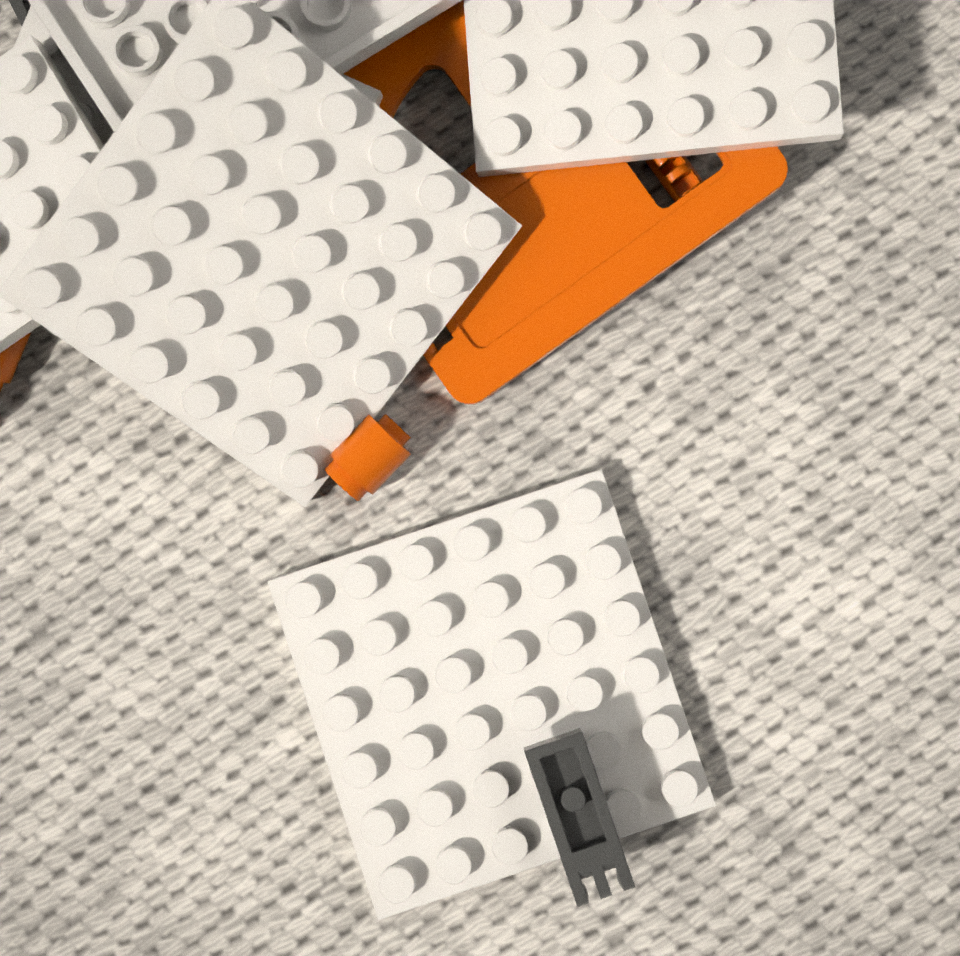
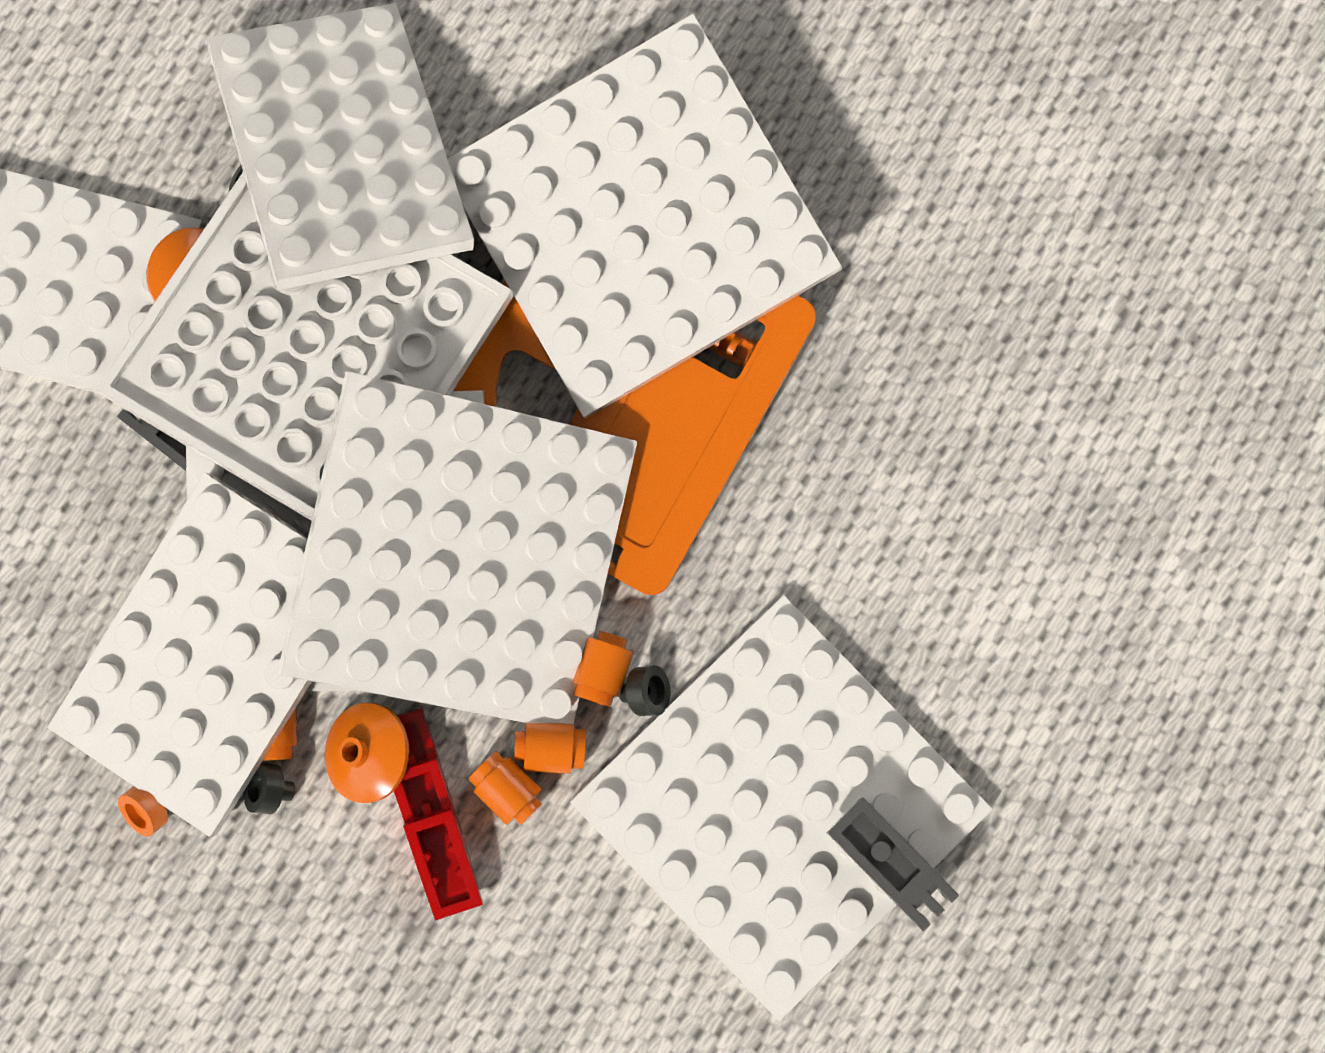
camera: 30 degrees left, 5 degrees down
(76, 426) = (381, 753): none -> orange dish
(113, 522) = (434, 825): none -> red slope
(205, 535) = (506, 789): none -> orange brick
(273, 513) = (550, 747): none -> orange brick
(405, 502) = (646, 691): none -> pearl dark grey tile

